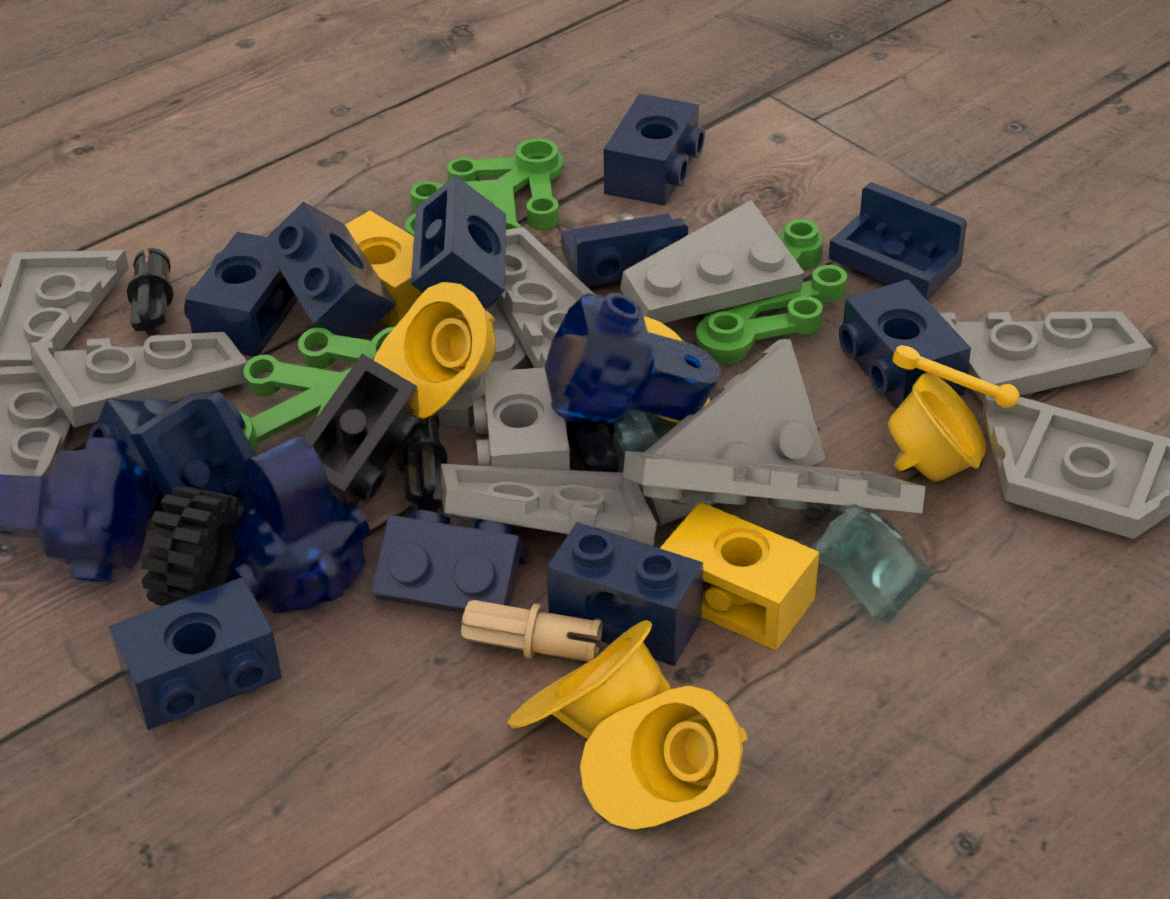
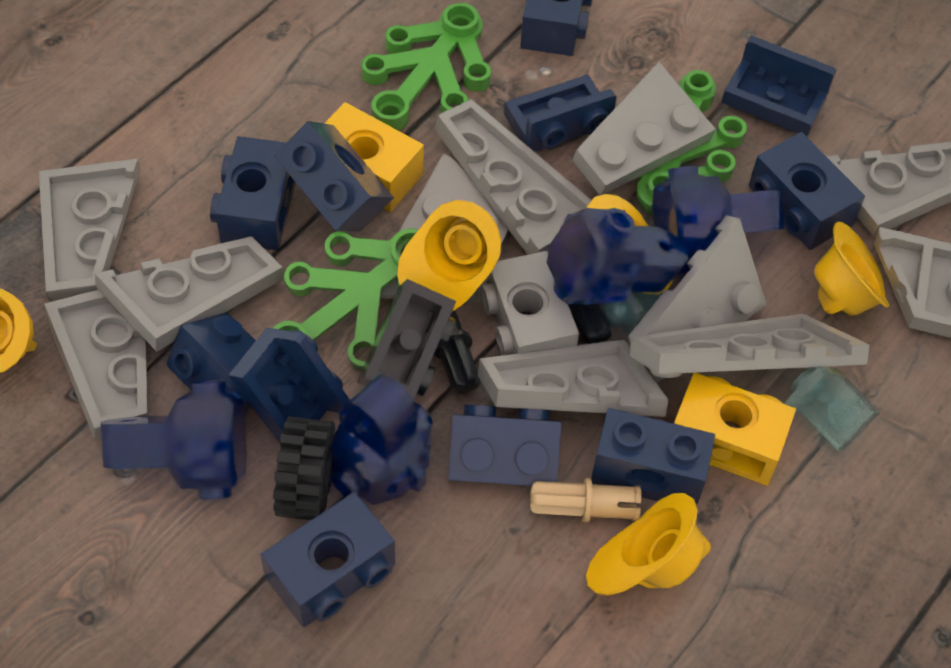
camera: 15 degrees left, 15 degrees up
(150, 291) = (171, 198): black axle -> none
(460, 242) = (440, 143): dark blue brick -> none
(662, 758) = (722, 610): yellow piece -> none
(746, 326) = (696, 205): none -> clear blue piece
(908, 358) = (823, 215): yellow hinge -> none

